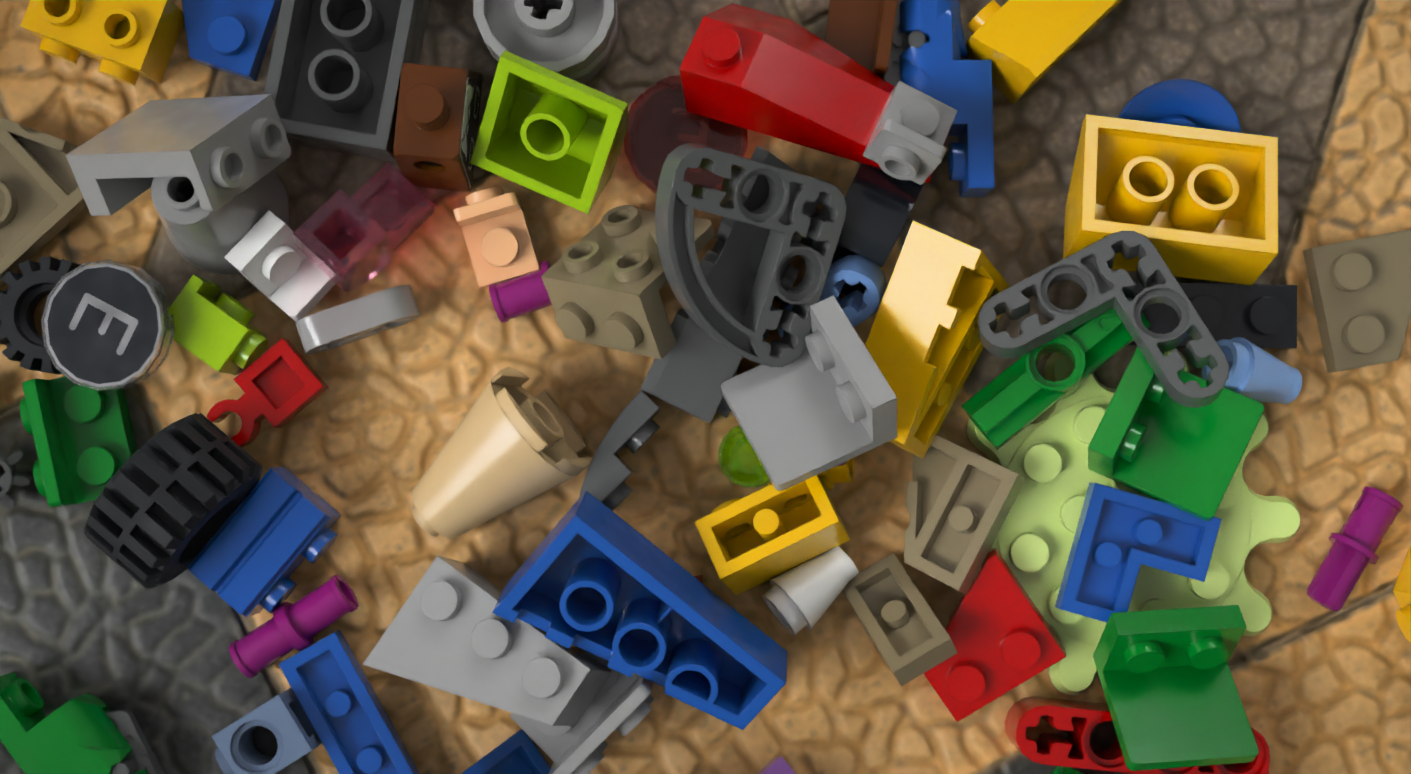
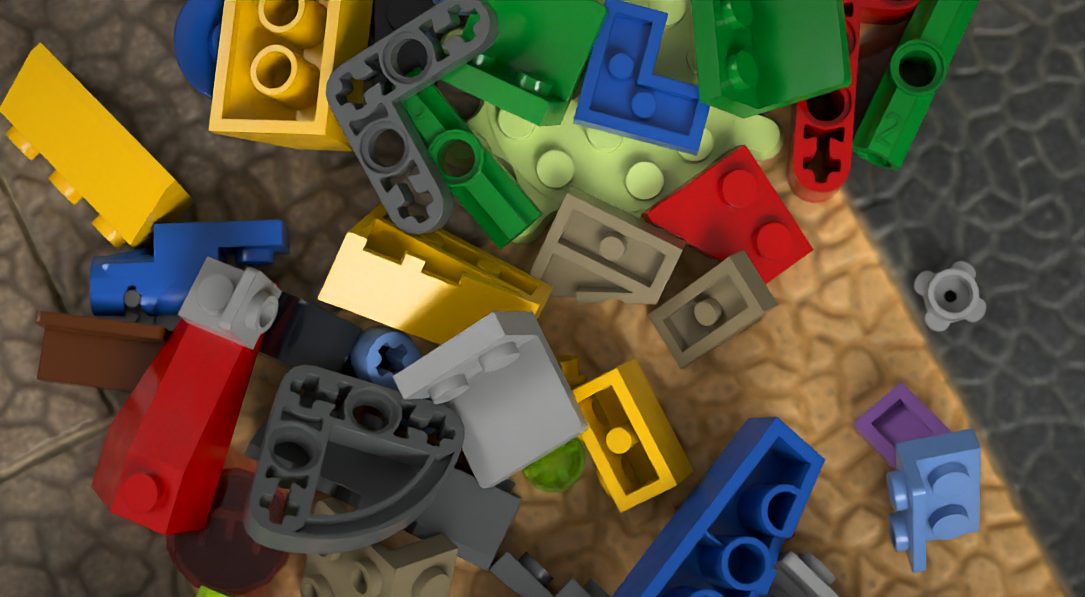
camera: 90 degrees left, 5 degrees down
(808, 590) = (687, 399): white cone -> none

